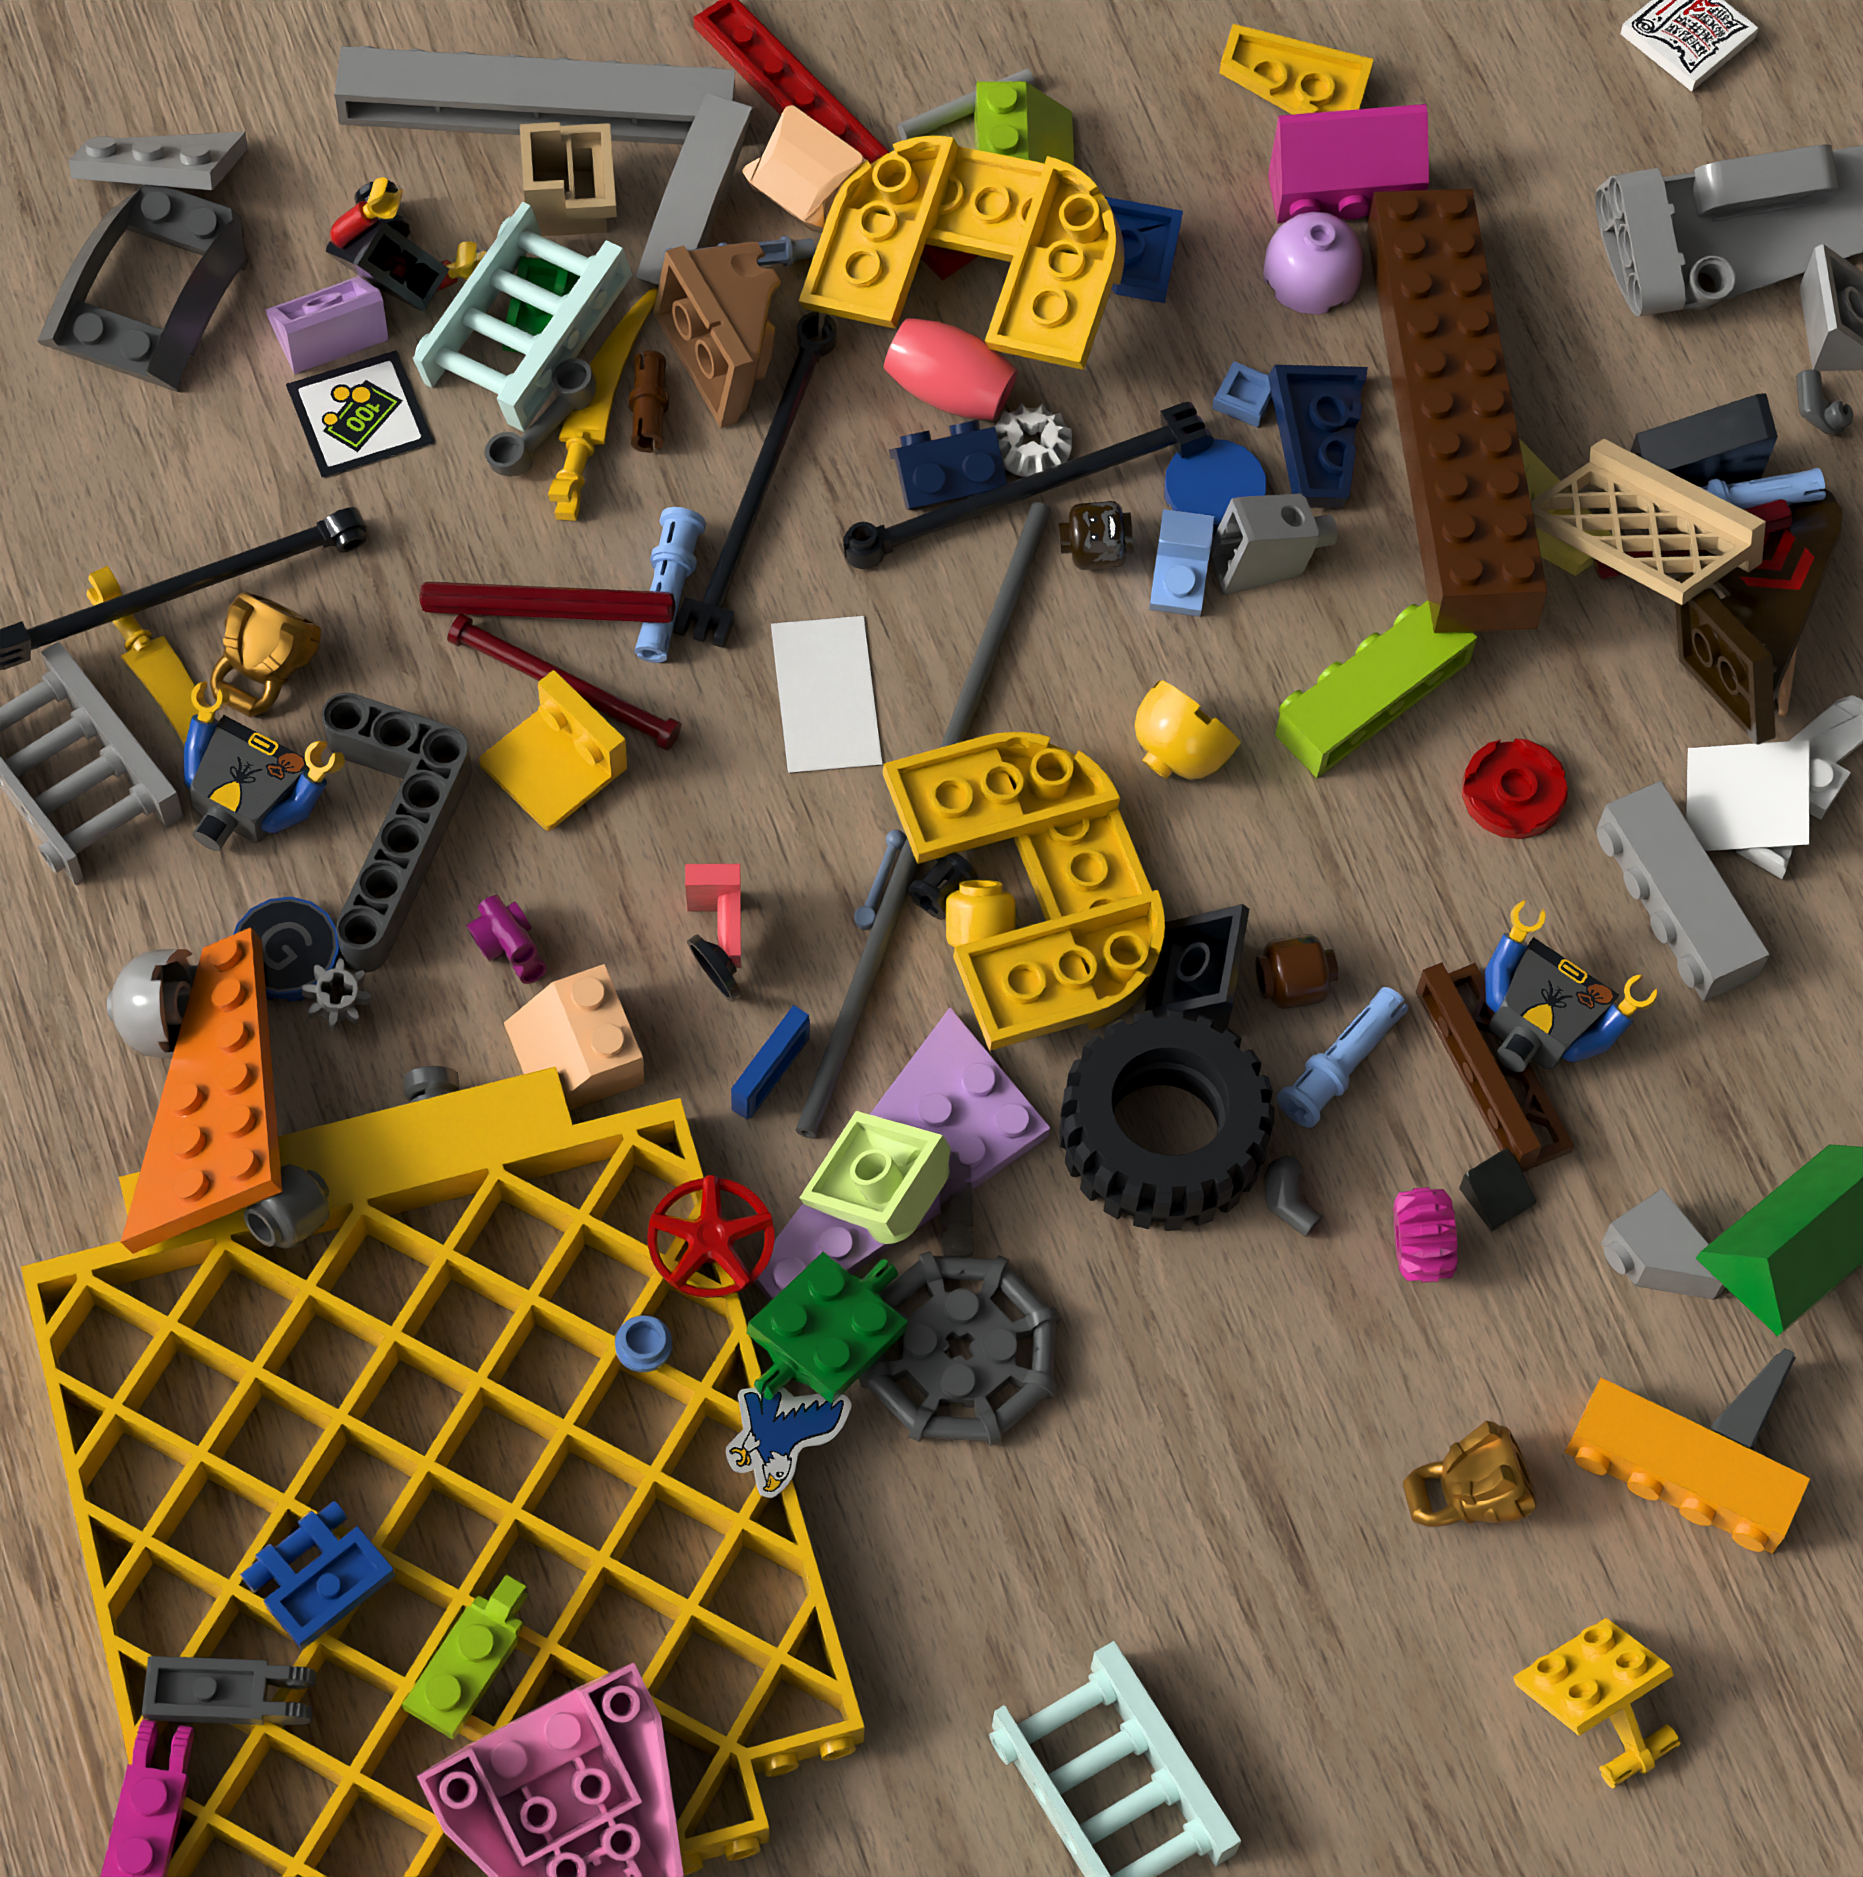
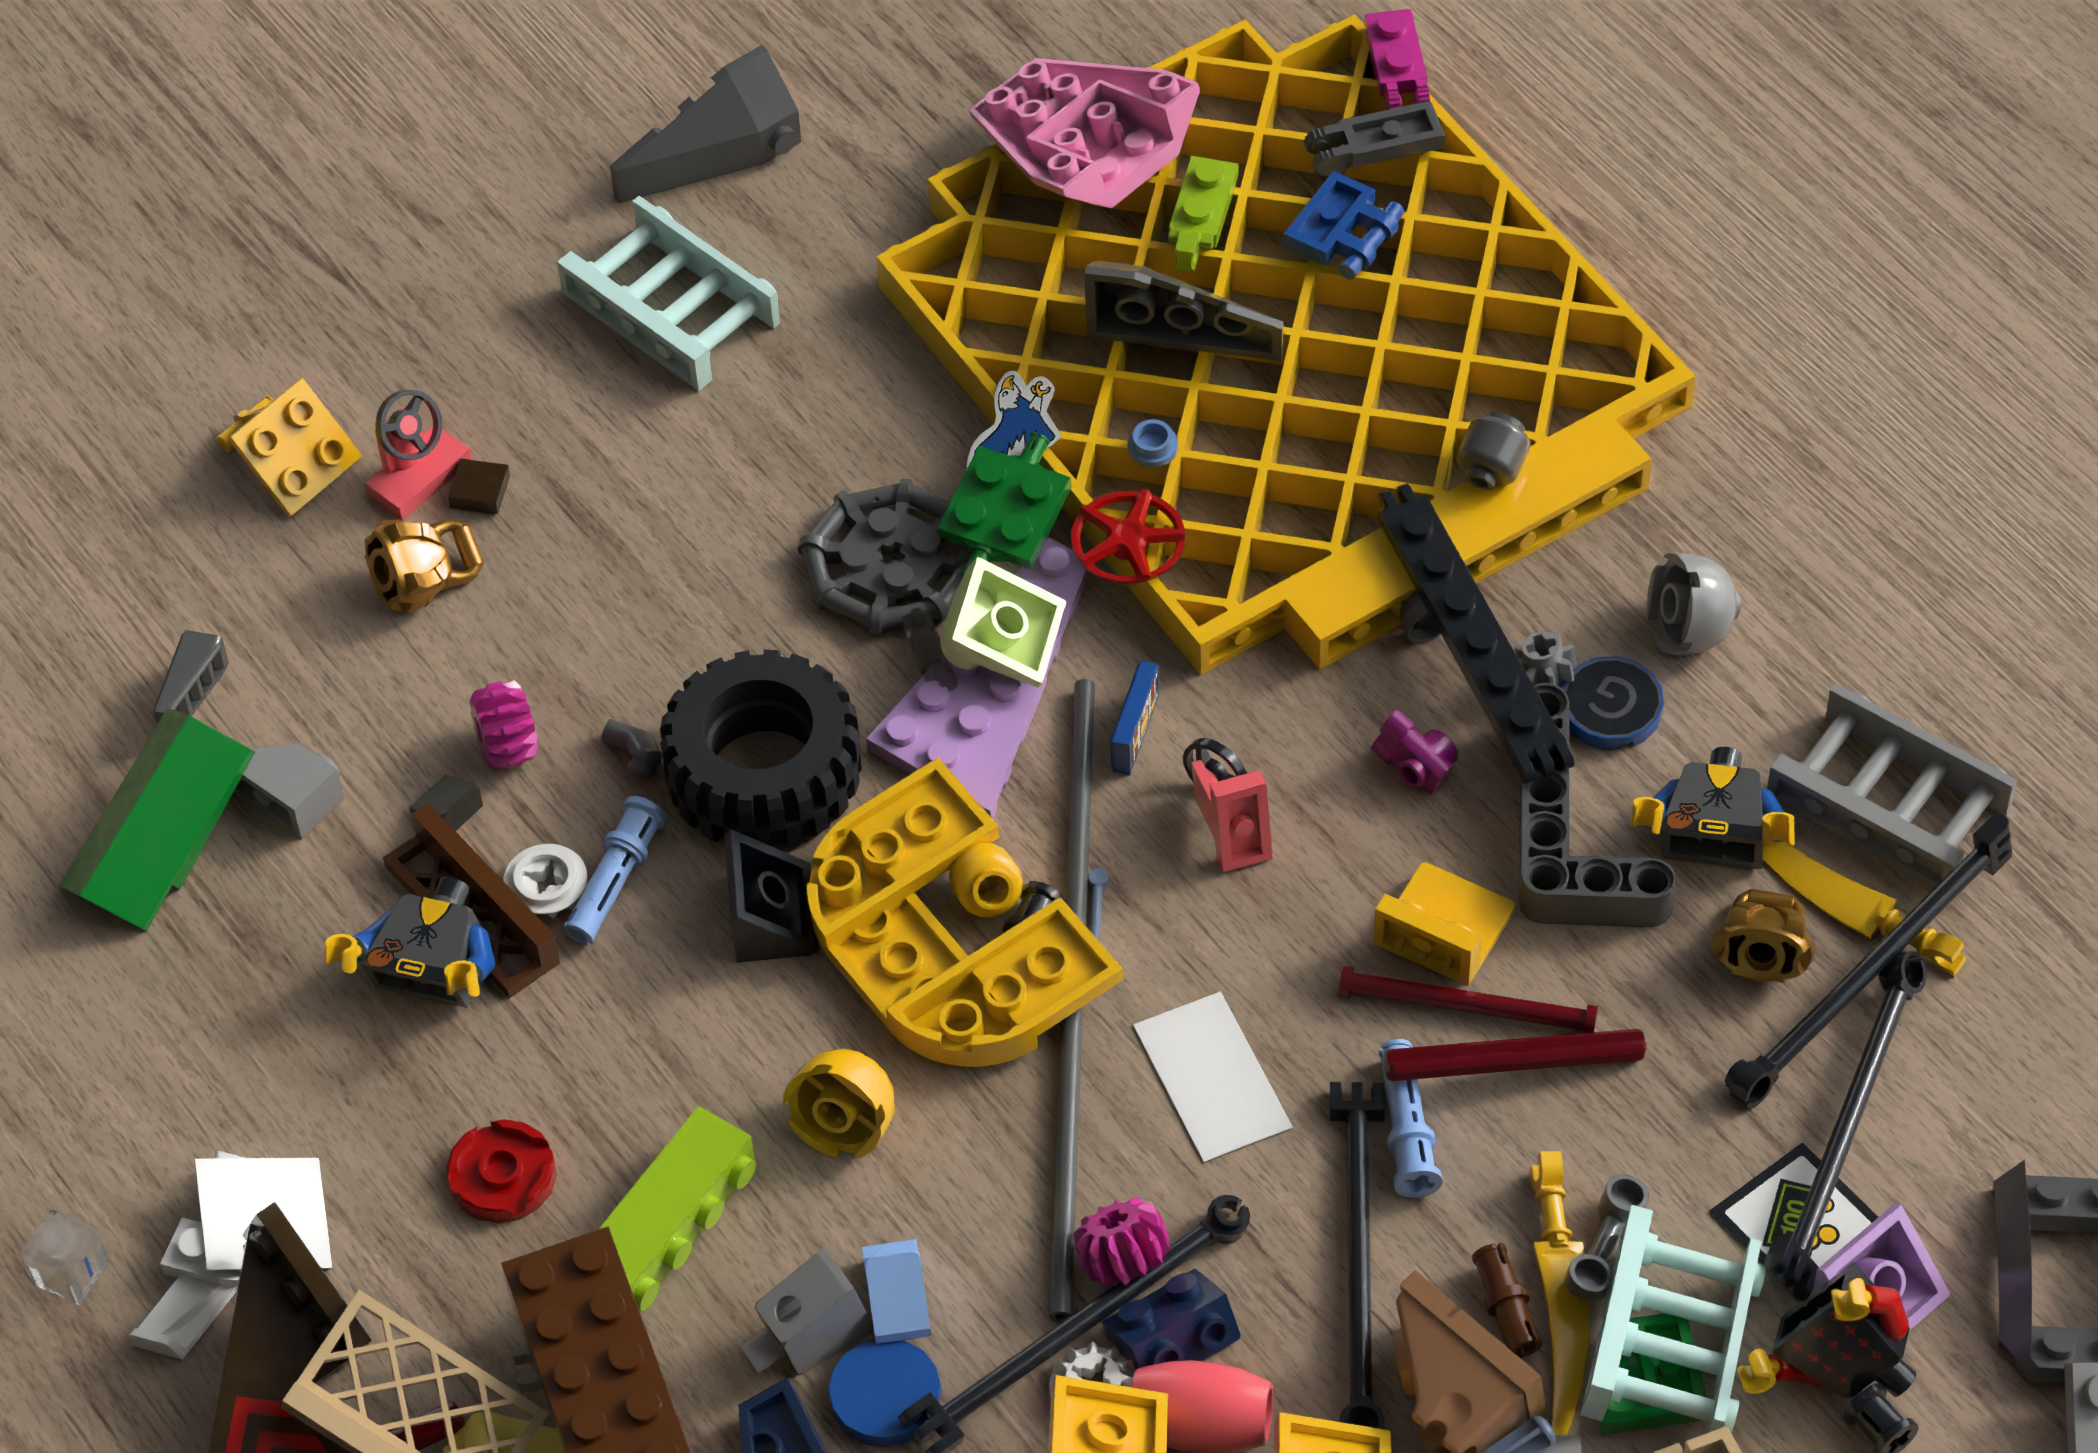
camera: 170 degrees right, 10 degrees down
(217, 1111) = (1589, 493): orange wing -> none
(386, 352) = (1789, 1255): none -> black hinge
(402, 1022) = (1473, 634): none -> black hinge
(582, 1033) = (1310, 691): light nougat slope -> none
(591, 1514) = (1159, 310): none -> dark grey wedge
(955, 538) = (1121, 1241): none -> dark pink gear
(1097, 535) = (989, 1282): dark brown head -> none
(1296, 971) = (676, 927): reddish brown head -> none
(1388, 1587) = (479, 486): none -> dark brown tile
(1404, 1048) = (538, 863): none -> white gear
(1453, 1627) = (412, 461): none -> coral piece
(1681, 891) = (318, 1101): light grey brick -> none
(1687, 1467) = (256, 624): light orange brick -> none

